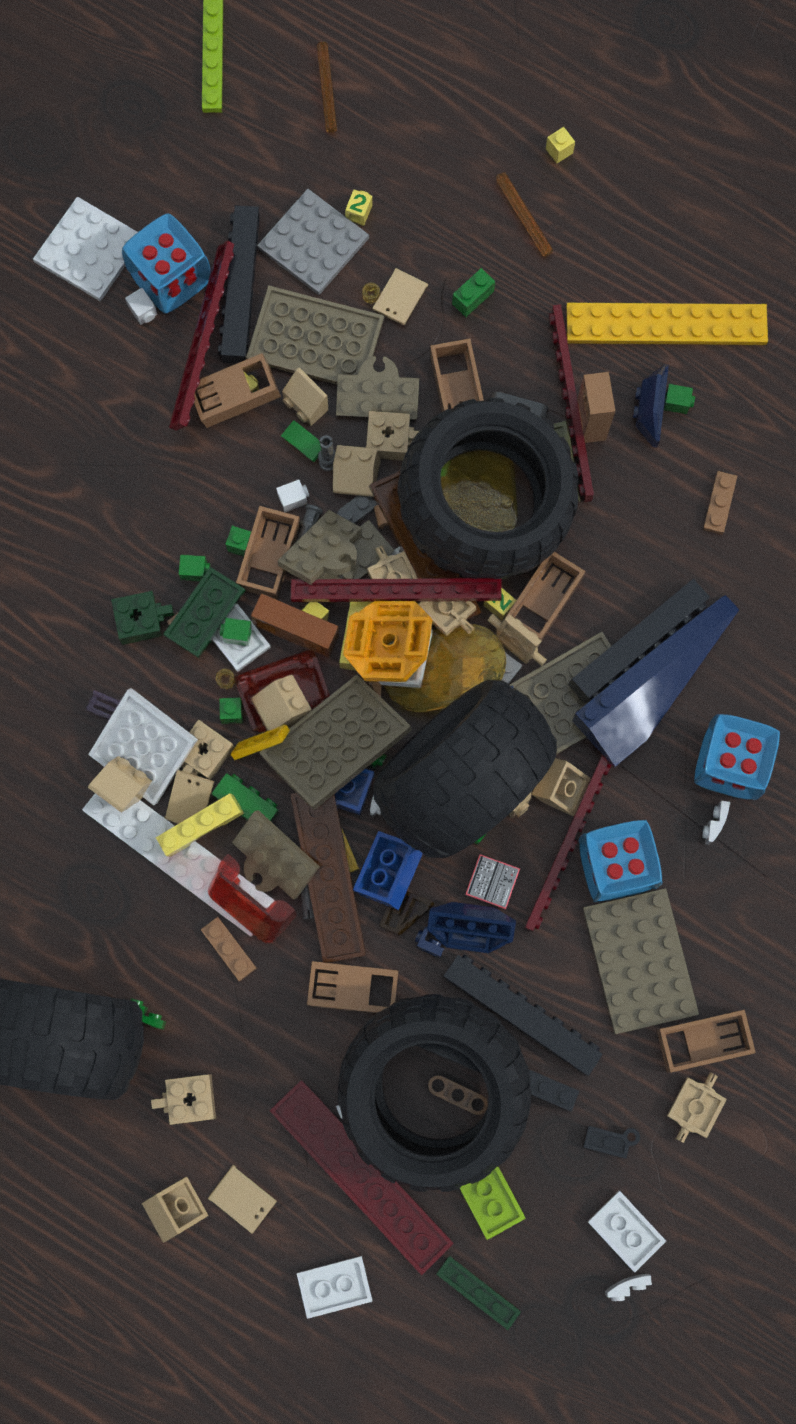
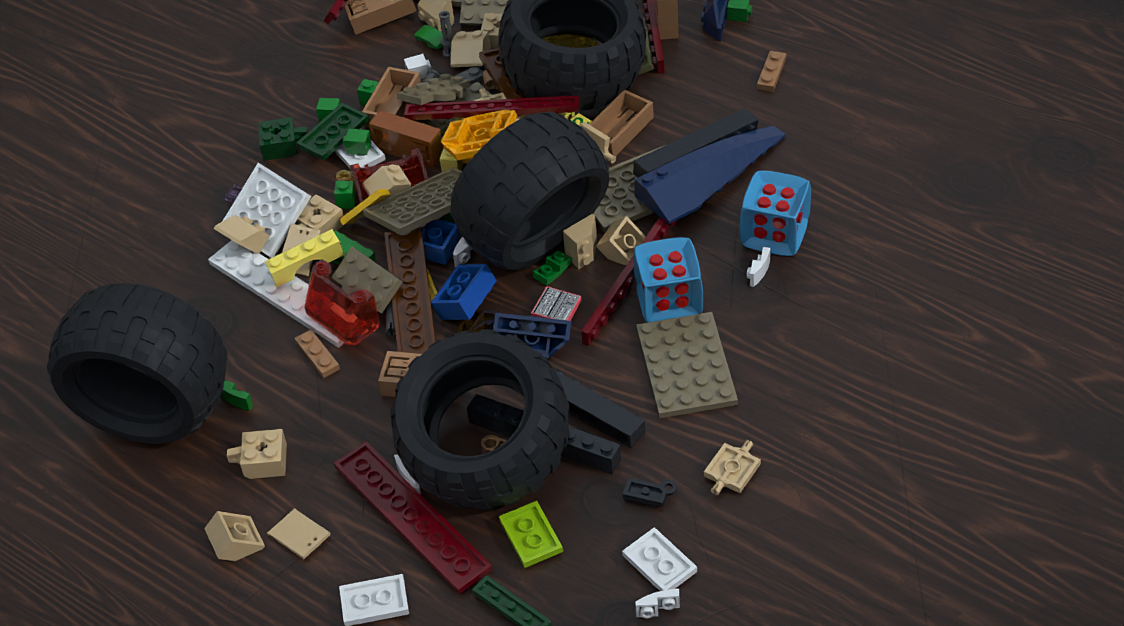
camera: 10 degrees right, 30 degrees down
(705, 1042) = (745, 414): medium nougat piece -> none

